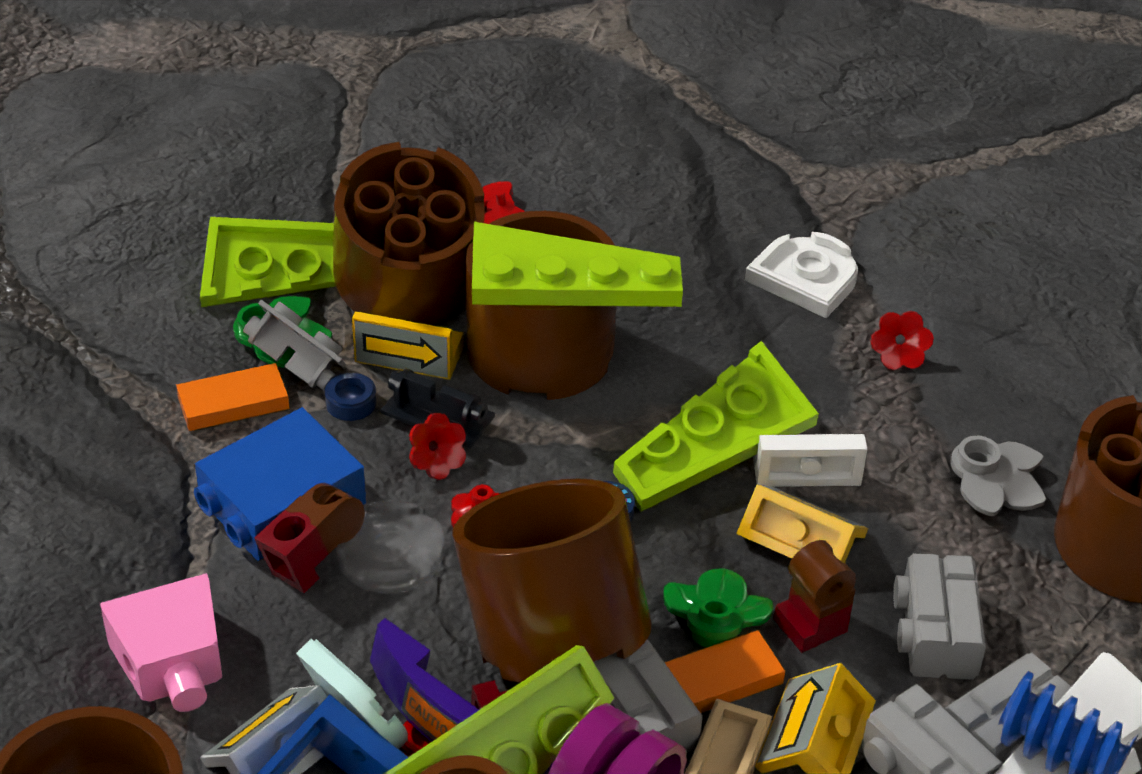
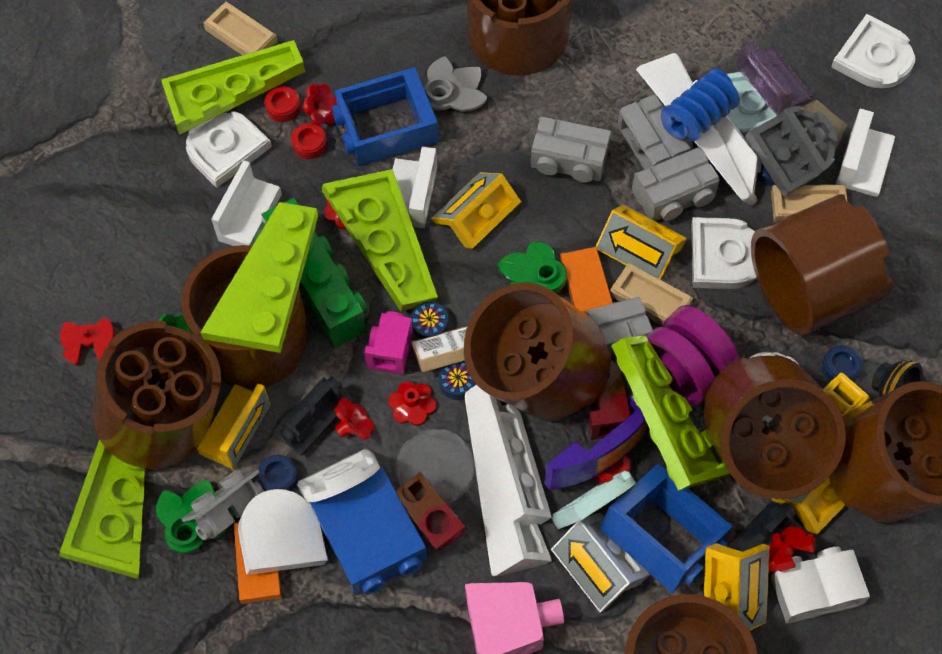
camera: 75 degrees left, 20 degrees up
(261, 389) = (280, 533): none -> white tile
(349, 437) = (339, 476): none -> white tile
(421, 608) = (507, 485): none -> white wedge
(558, 456) = (390, 343): none -> dark pink brick
(636, 372) = (328, 292): none -> green brick
(719, 296) = (239, 212): none -> white panel
(818, 597) = (550, 212): leg -> none
(846, 347) = (309, 141): none -> red tile
(889, 302) = (282, 104): none -> red tile
(896, 251) = (226, 84): none -> lime wing
(924, 443) = (377, 93): none -> blue window
(985, 256) = (239, 30): none -> tan tile

